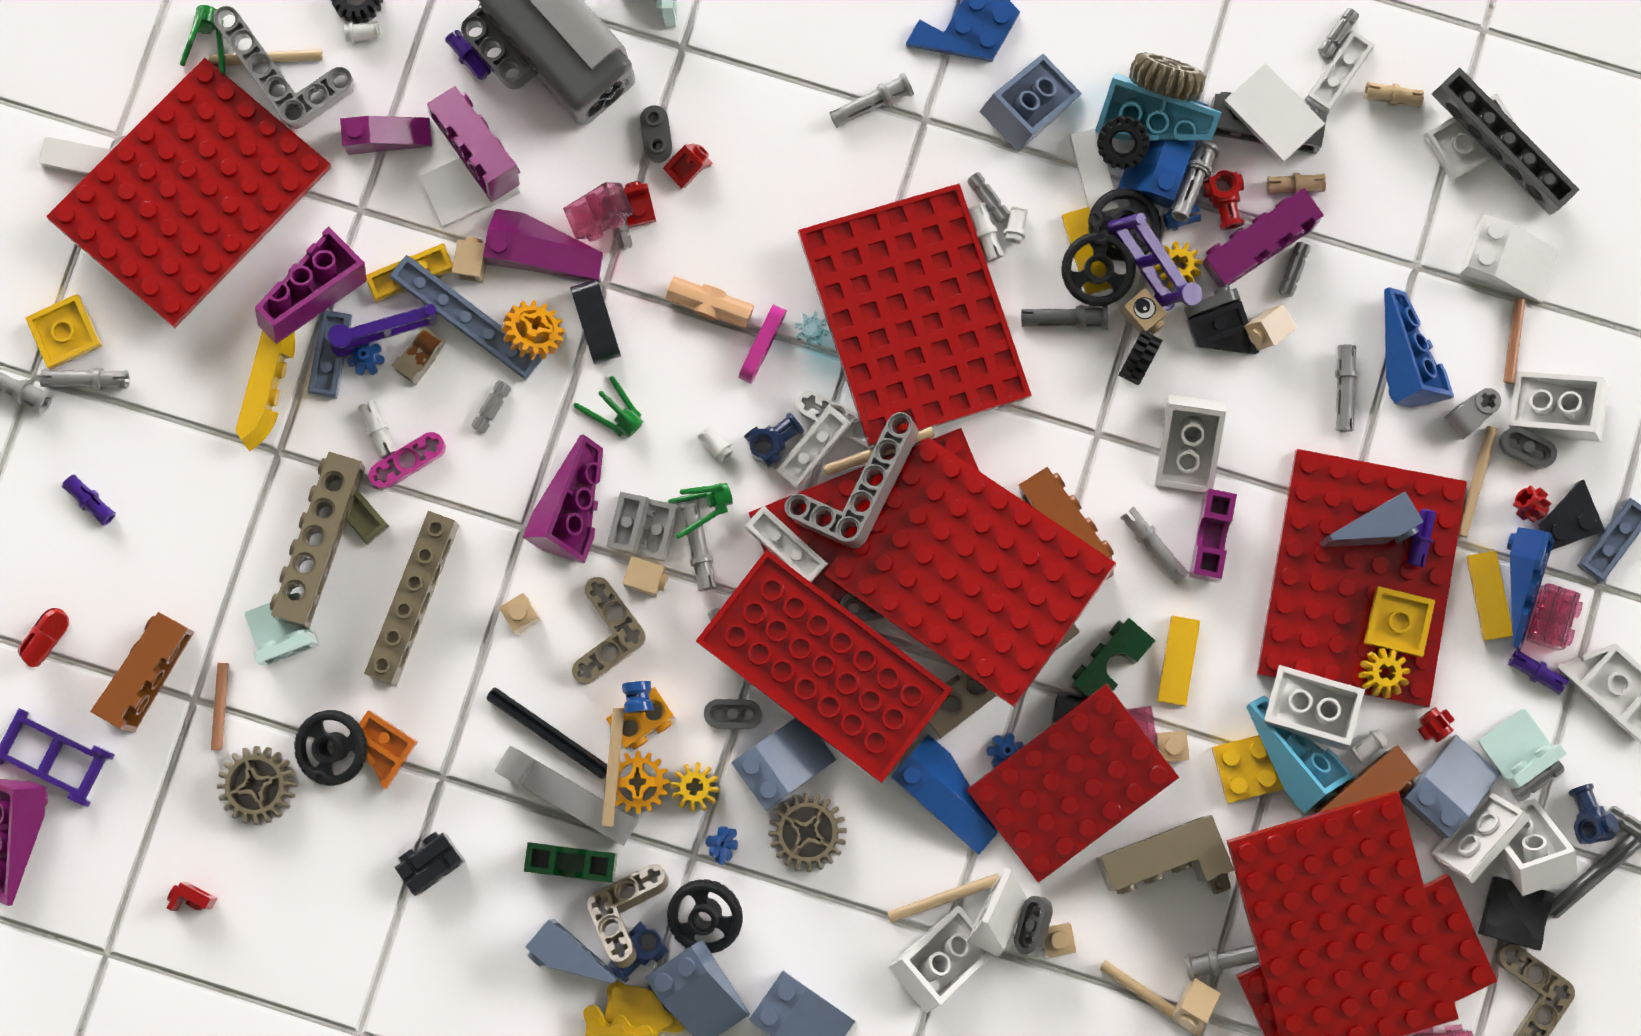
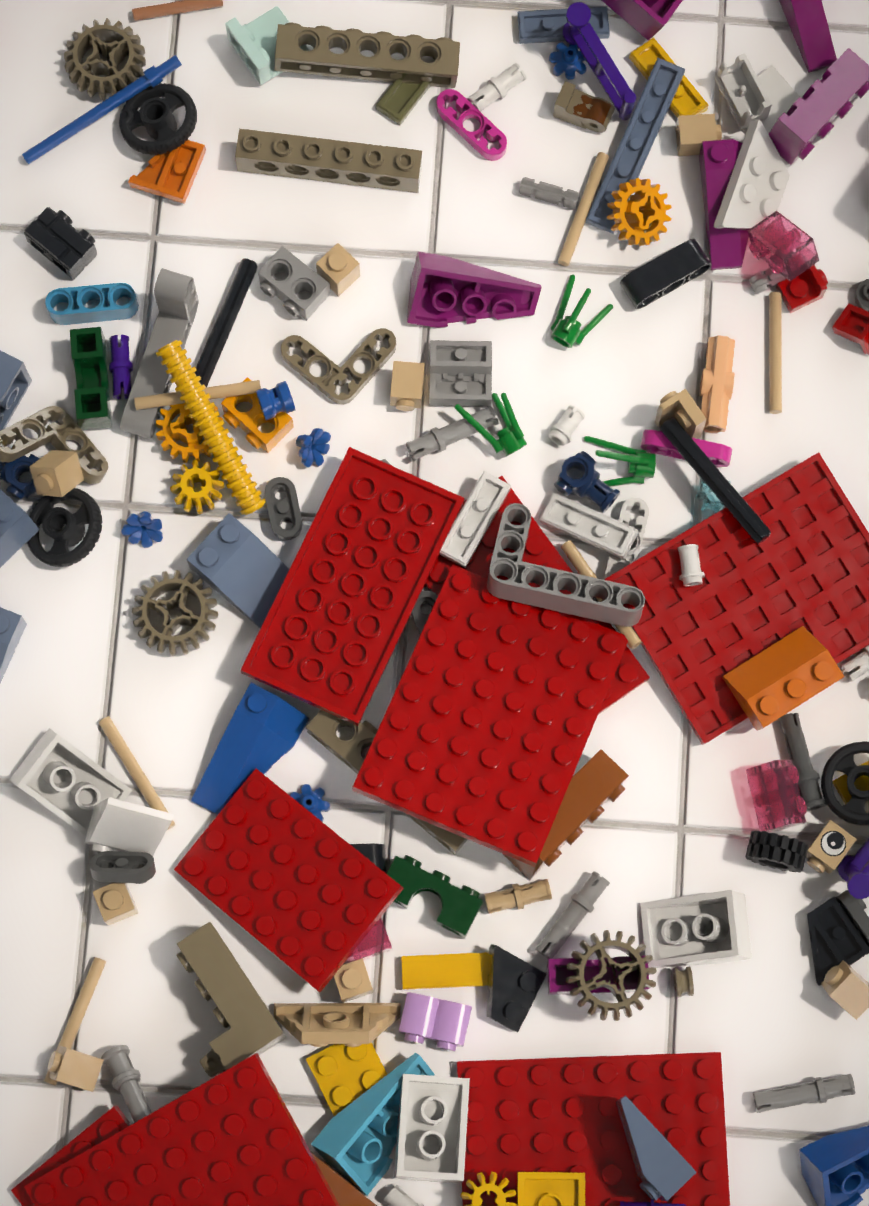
camera: 75 degrees right, 5 degrees down
(289, 744) = (153, 76): none -> blue bar
(442, 208) = (743, 91): none -> white hinge
(492, 832) = (78, 297): none -> dark azure beam
(513, 379) = (583, 209): none -> tan bar
(519, 650) = (299, 278): none -> light grey brick
(532, 220) = (755, 182): none -> white wing
(563, 833) = (120, 366): none -> dark purple pin
(647, 761) = (211, 427): none -> yellow piece
(655, 912) = (56, 473): none -> tan brick
(681, 674) = (313, 446): none -> blue plant
(691, 244) = (775, 352): none -> tan bar
(736, 335) = (684, 410): none -> tan bracket
(766, 388) = (639, 462): none -> green plant
(803, 325) = (715, 480): none -> black axle
(876, 366) = (690, 565): none -> white pin
(992, 313) = (782, 677): none -> orange slope
(1091, 345) = (776, 795): none -> clear pink brick
(1127, 587) = (518, 896): none -> tan pin
(1206, 612) = (511, 988): none -> black wing
(1206, 771) = (336, 1022): none -> tan wing
(1219, 683) = (435, 1020): none -> lavender brick
(1220, 509) = (637, 963): none -> dark tan gear
(1231, 465) = (683, 981): none -> dark tan bush

